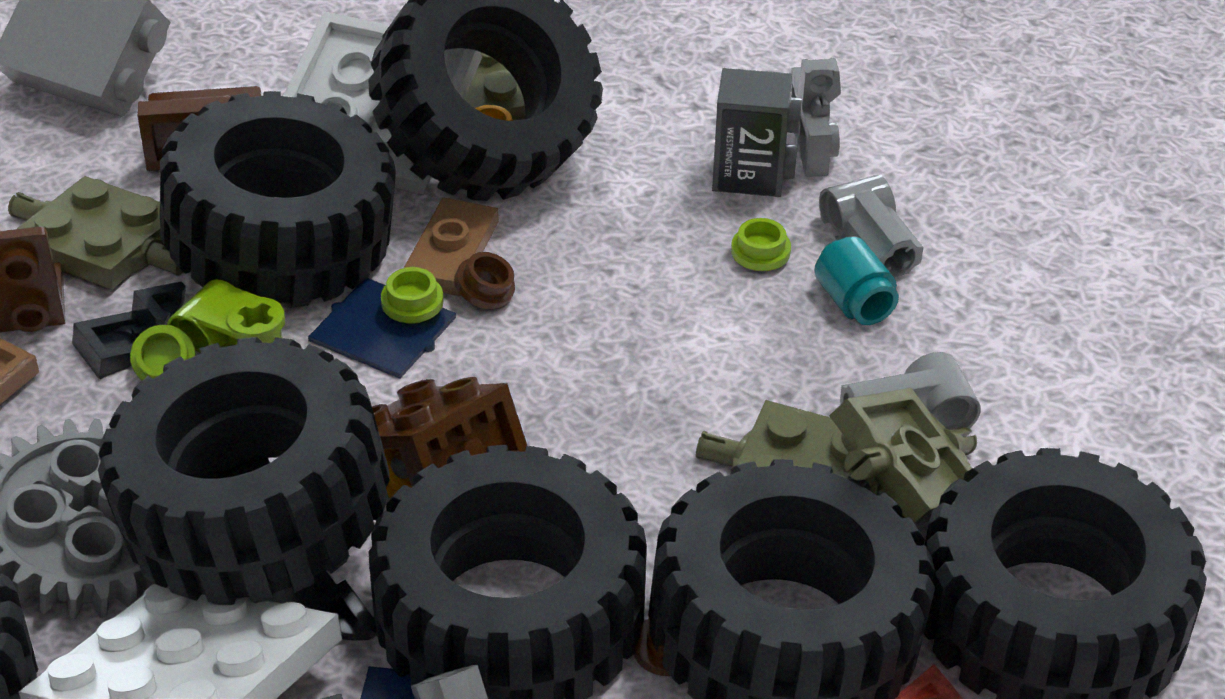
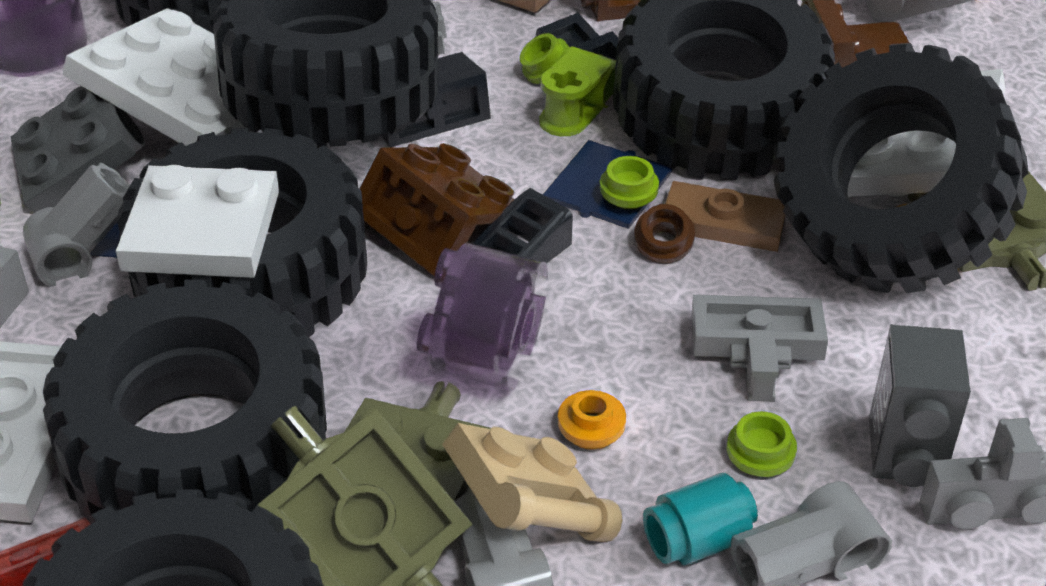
camera: 90 degrees right, 0 degrees up
(479, 357) = (536, 220): none -> black slope
(564, 556) = (199, 221): none -> white plate
(630, 233) = (759, 335): none -> light grey hinge
(644, 381) = (483, 314): none -> clear purple brick
(736, 345) = (591, 431): none -> light orange plate
(848, 364) = (530, 483): none -> tan plate

